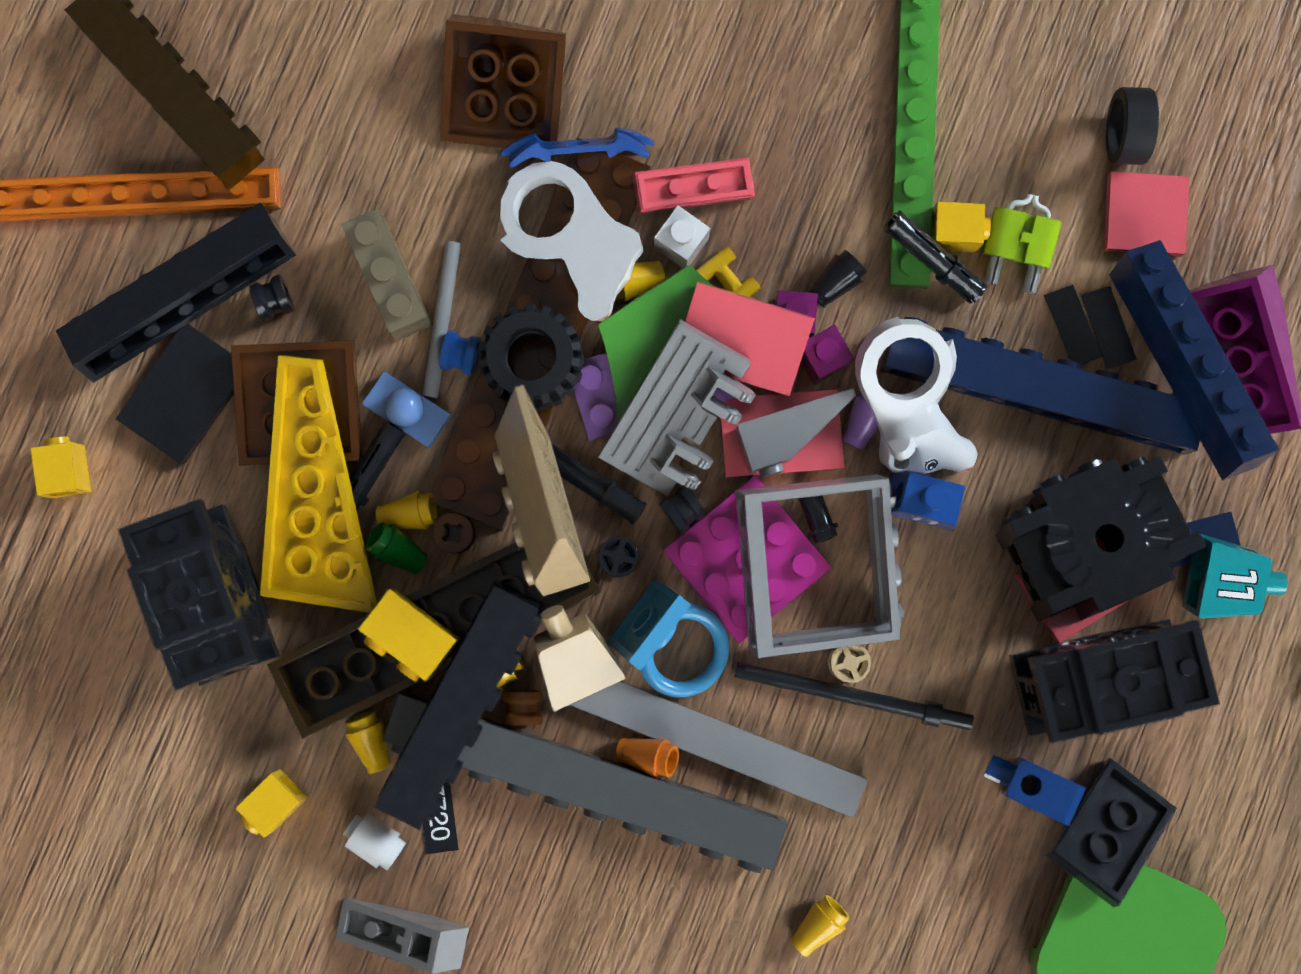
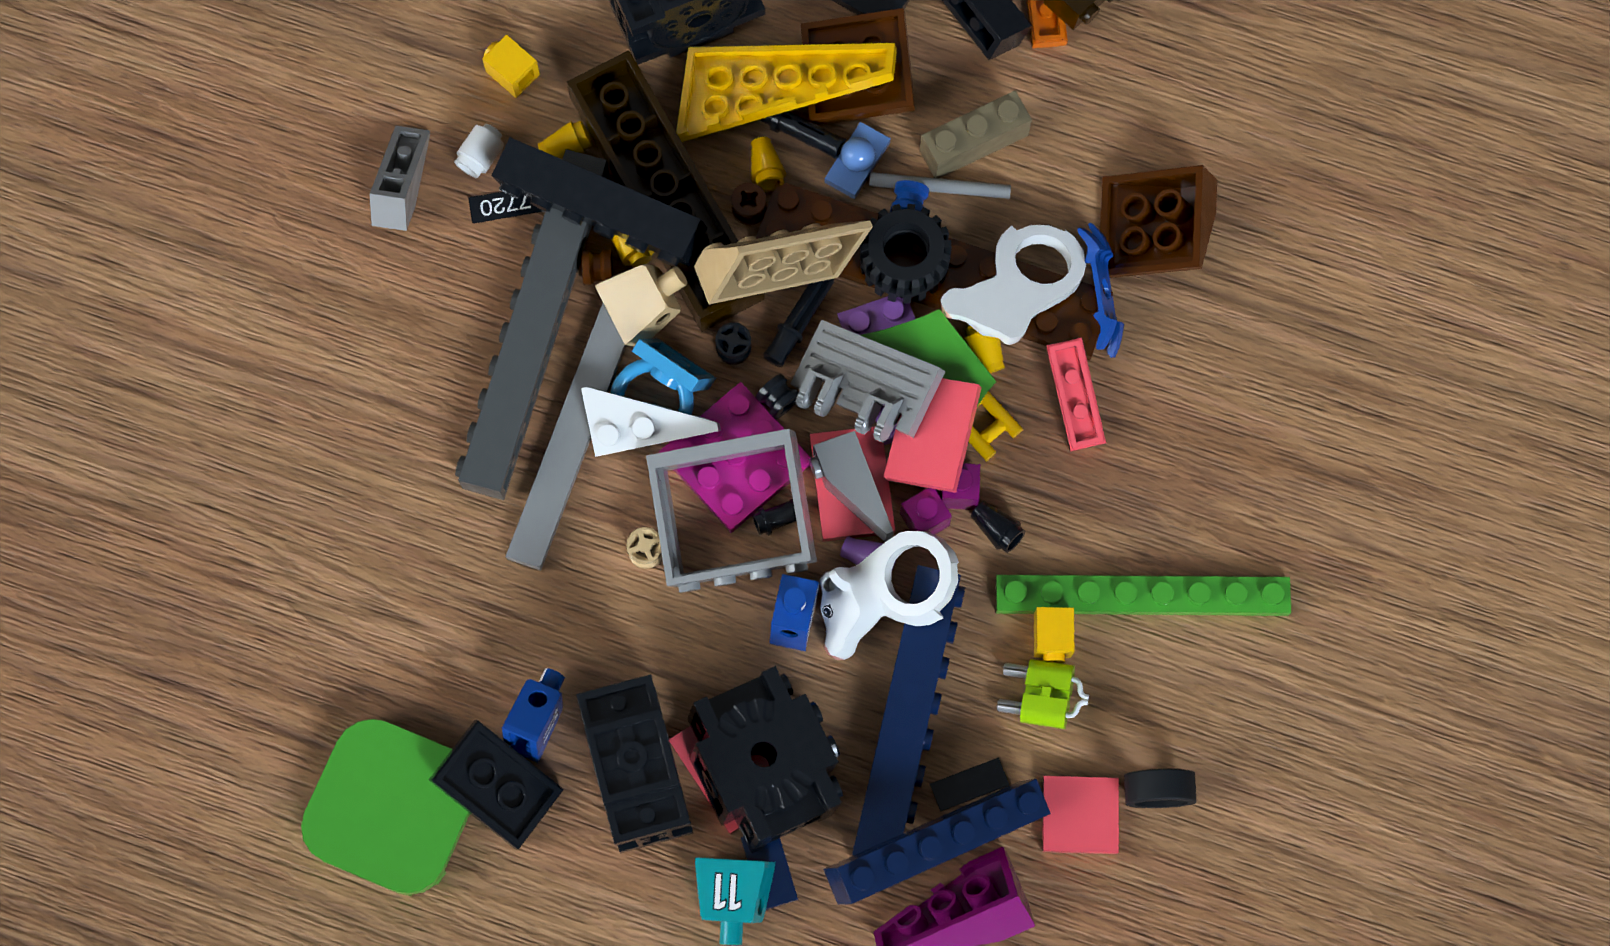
camera: 90 degrees right, 10 degrees down
(271, 298) = (949, 42): black wheel -> none
(394, 548) = (733, 153): green cone -> none
(408, 636) = (656, 158): yellow brick -> none
(649, 756) = (556, 376): orange cone -> none
(681, 237) = (1025, 384): white brick -> none
(712, 679) = (627, 424): none -> white wing
(820, 925) = (411, 532): yellow cone -> none
(930, 712) = (601, 624): black bar -> none
(946, 267) = (1027, 600): black pin -> none
(1073, 325) = (968, 750): black sticker -> none

